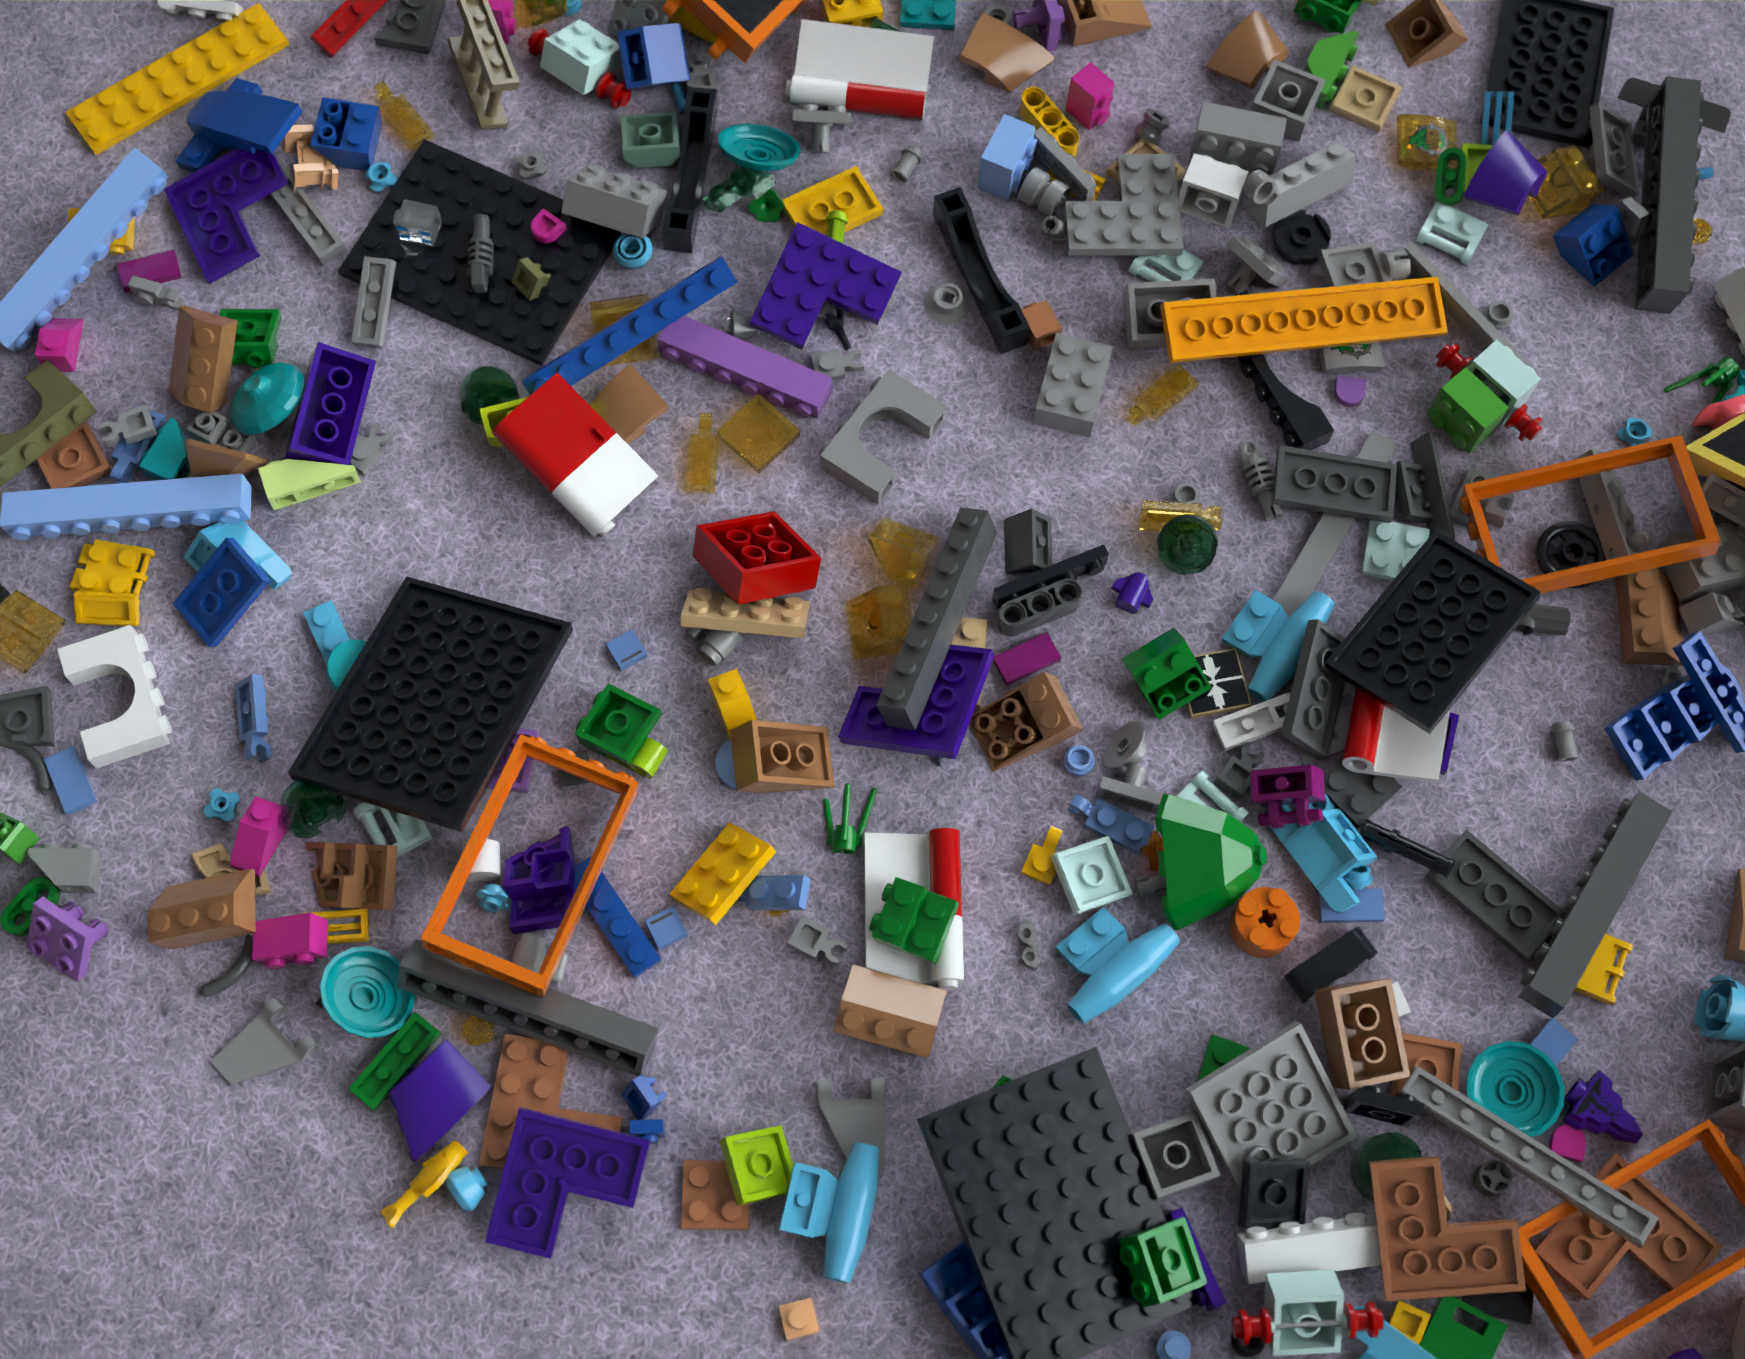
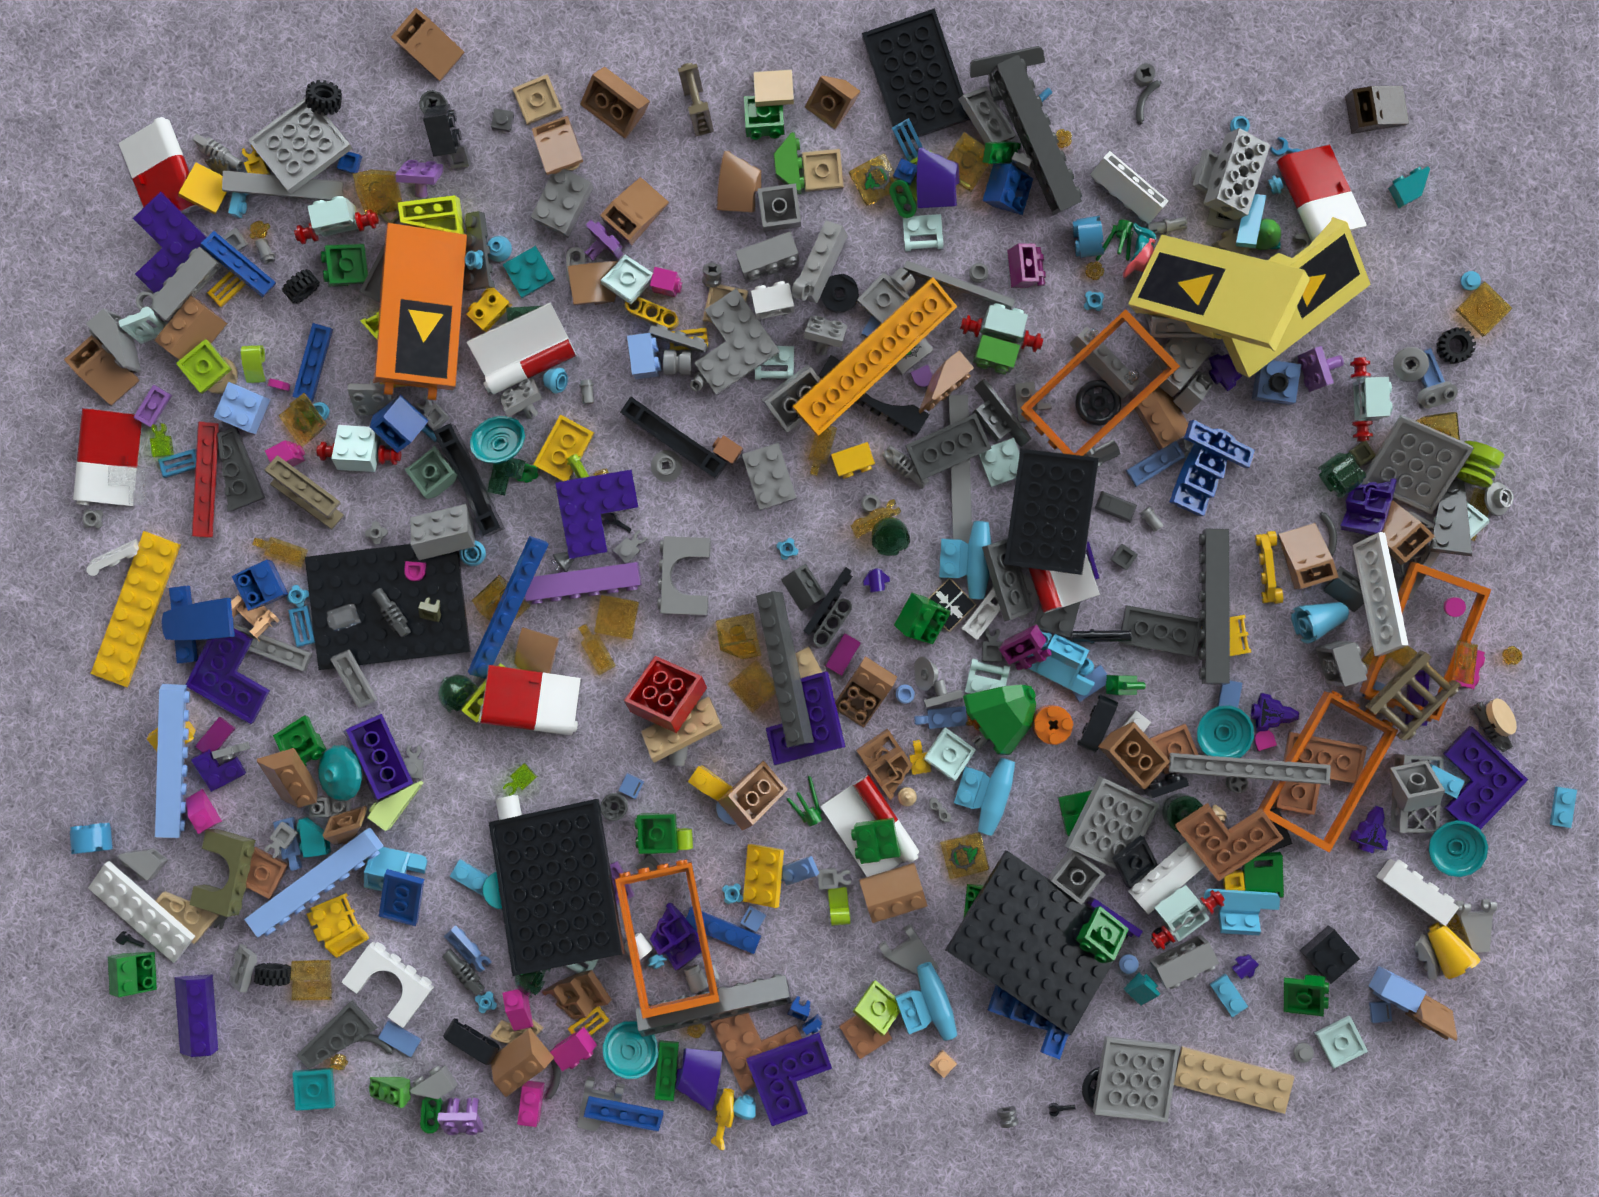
camera: 35 degrees left, 20 degrees up
(114, 311) = (216, 774): none -> dark purple plate
(161, 843) = (471, 1042): none -> black beam
(174, 979) = (530, 1103): none -> dark pink brick
(223, 746) = (464, 972): none -> dark grey hinge
(290, 1079) = (623, 1113): none -> blue plate
(350, 232) = (309, 625): none -> dark azure tile
(447, 569) = (508, 807): none -> white piece
(492, 550) = (521, 778): none -> clear neon green plate
(573, 655) = (617, 814): none -> dark grey wheel
(657, 867) = (732, 898): none -> medium azure plate
(799, 987) = (839, 906): none -> lime panel
(878, 127) = (555, 380): none -> medium azure cone
(991, 845) = (886, 768): none -> medium nougat slope
(994, 897) = (907, 796): none -> tan plate
(1025, 1029) = (964, 855): none -> clear yellow slope
(1038, 478) = (782, 547): none -> medium azure plate
(1043, 68) = (627, 279): none -> light aqua plate
(1196, 428) = (853, 460): none -> yellow brick
(1383, 401) = (946, 380): none -> medium nougat slope
(1399, 930) = (1123, 685): none -> green brick
(1474, 148) = (905, 171): none -> blue tile
(1497, 766) = (1124, 557): none -> dark grey plate
(1521, 699) = (1115, 506): none -> dark grey tile
(1568, 338) = (1026, 265): none -> magenta brick
(1607, 184) = (1000, 151): none -> green plate
(1609, 676) = (1155, 463): none -> medium blue tile
(1653, 404) = (1094, 275): none -> clear yellow plate
(1671, 349) = (1089, 236): none -> dark azure brick
(1695, 911) = (1271, 593): none -> yellow plate

